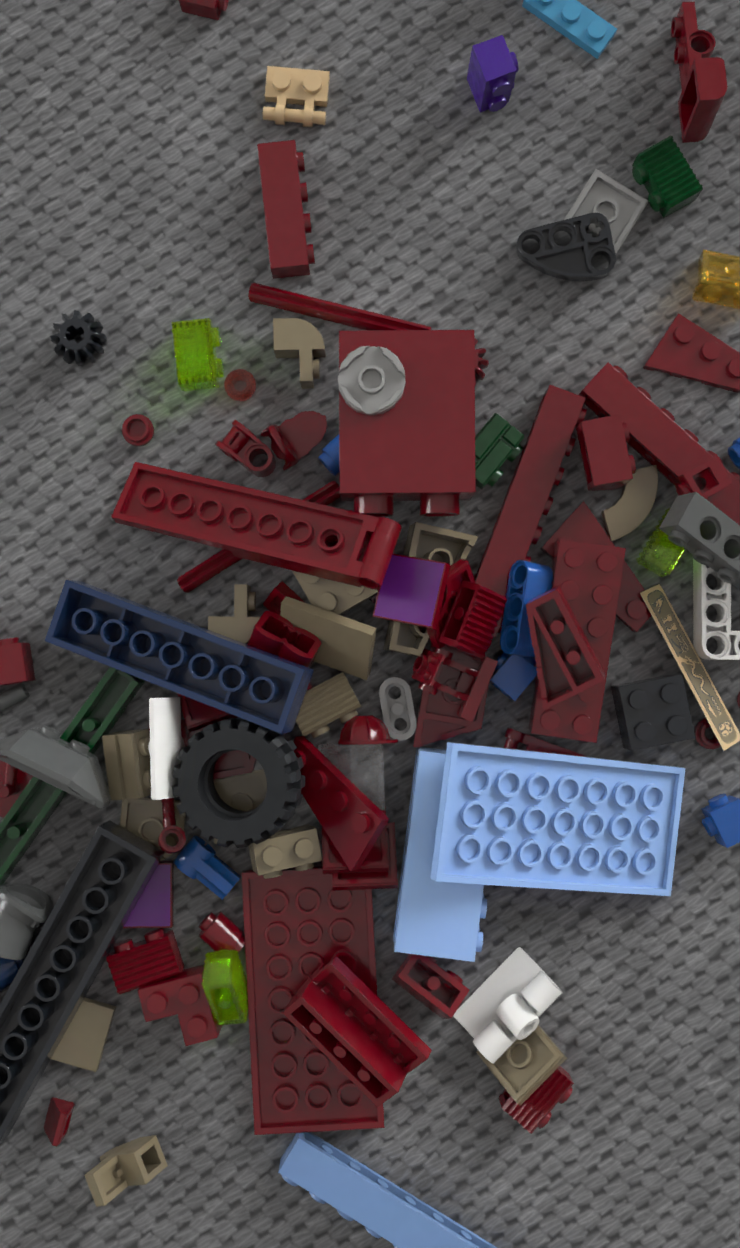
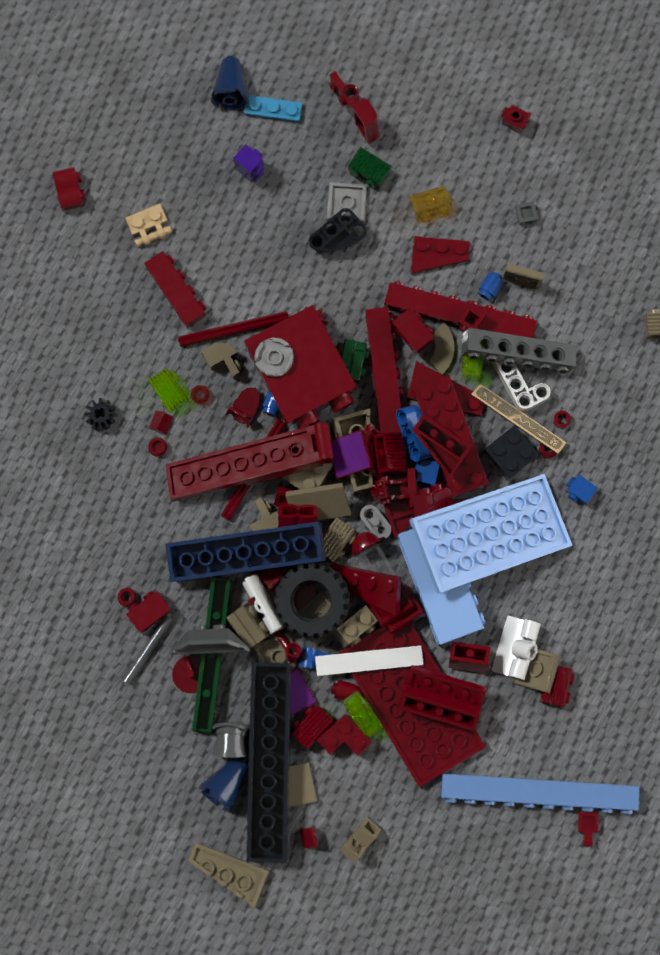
camera: 25 degrees left, 5 degrees down
(163, 397) = (161, 422): none -> dark red slope
(243, 447) = (221, 427): dark red piece -> none
(278, 910) = (369, 660): none -> white sticker
(498, 724) = (431, 499): none -> dark red brick

